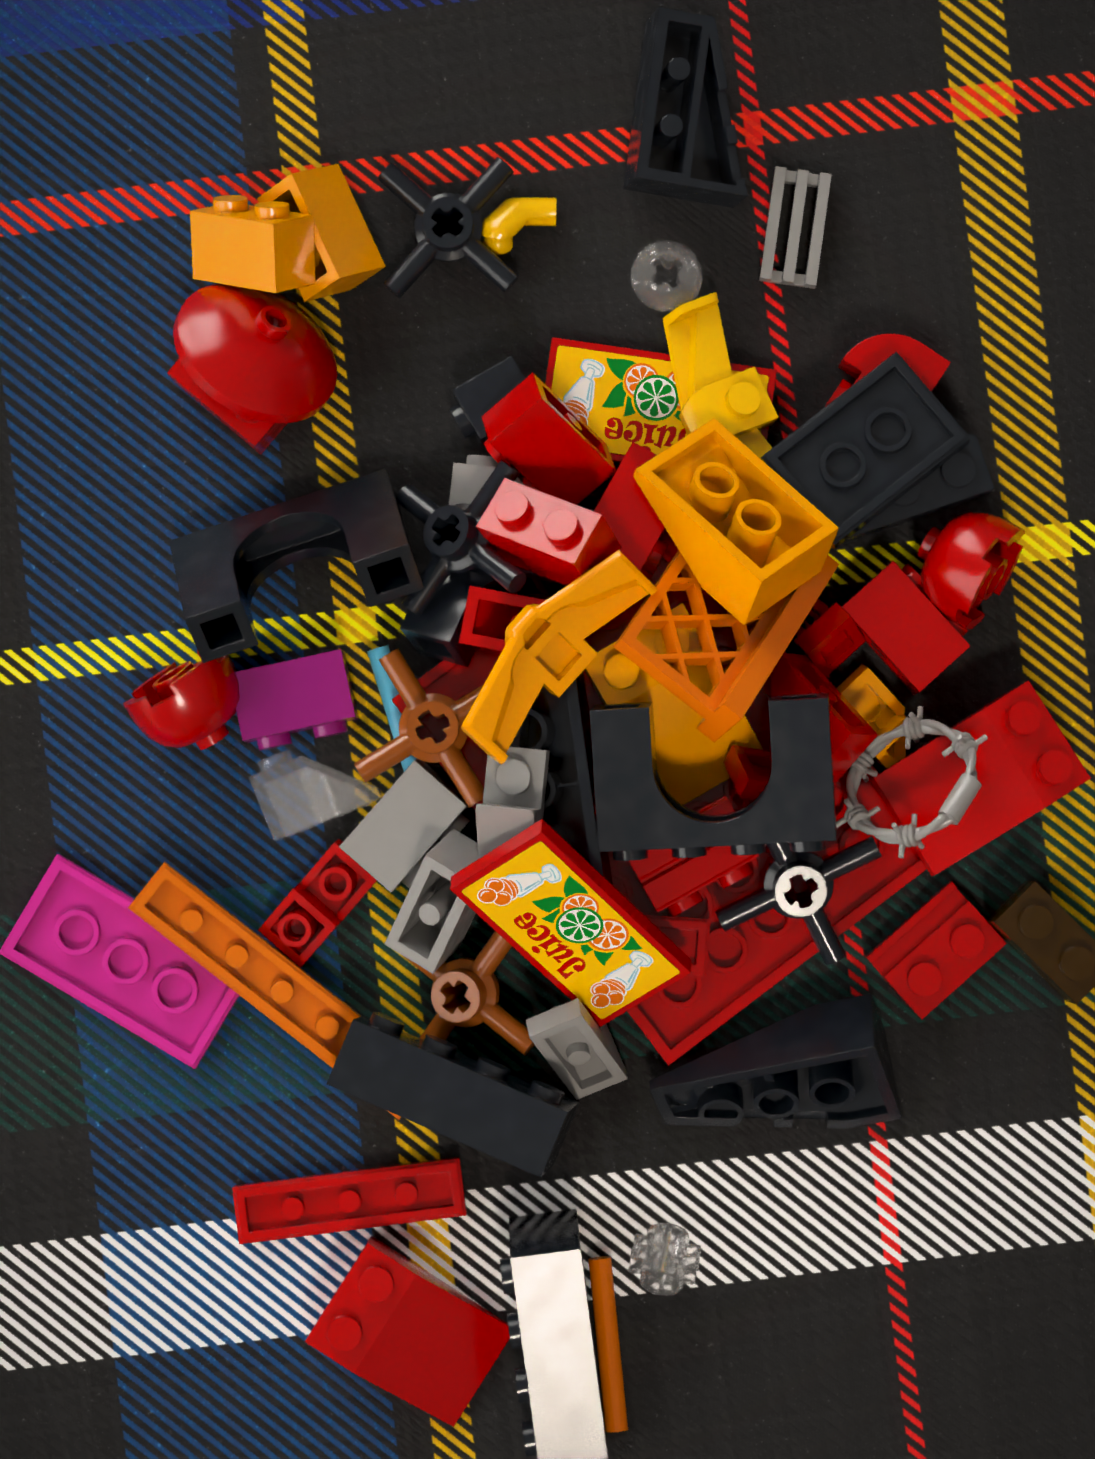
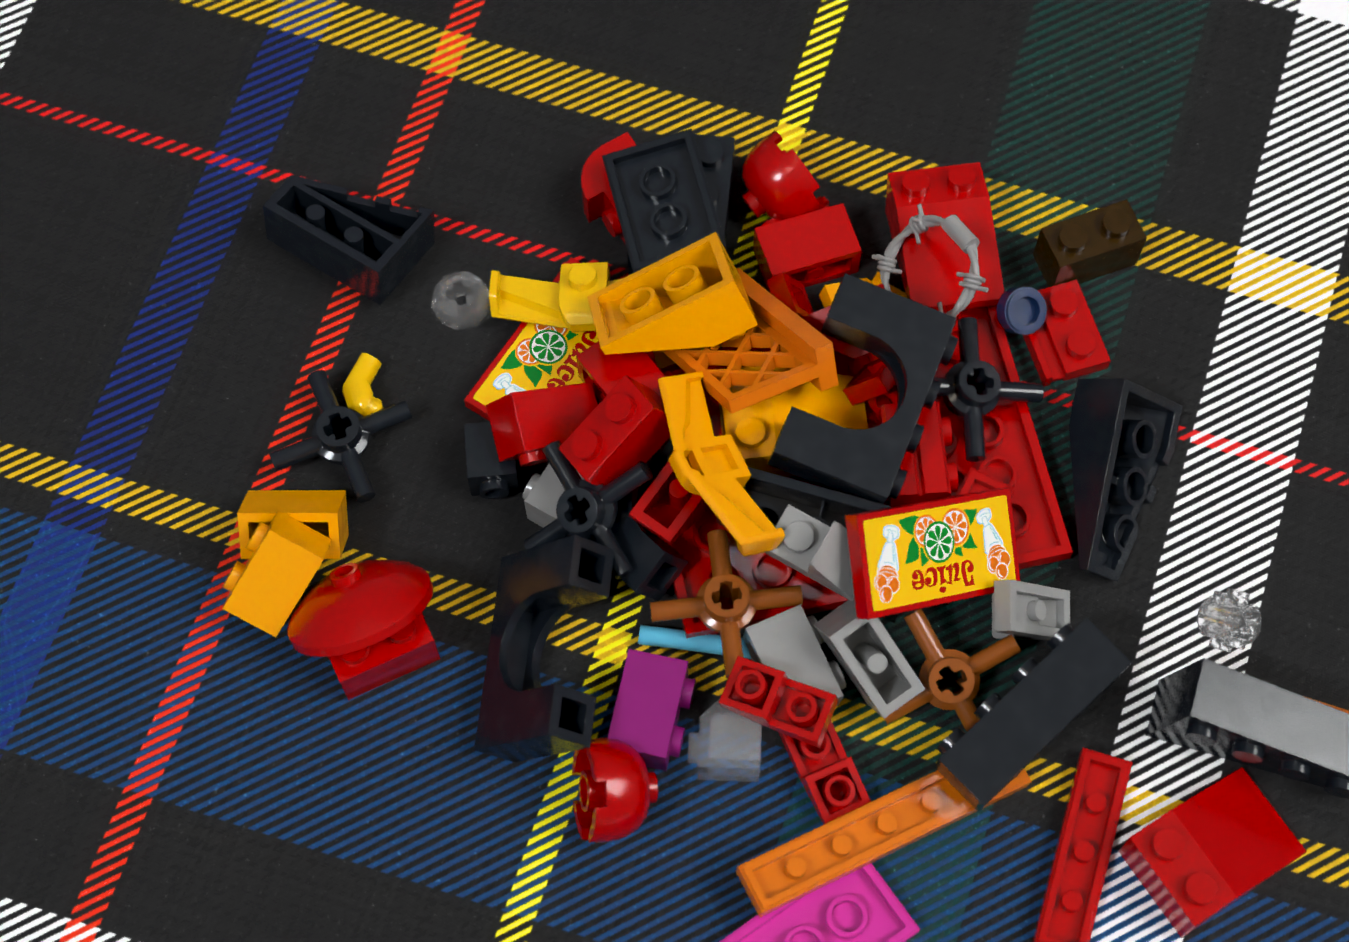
camera: 70 degrees left, 20 degrees down
(348, 829) = (778, 702): none -> red slope
(801, 180) = (480, 190): light grey tile -> none
(928, 899) = (1021, 310): none -> dark blue tile

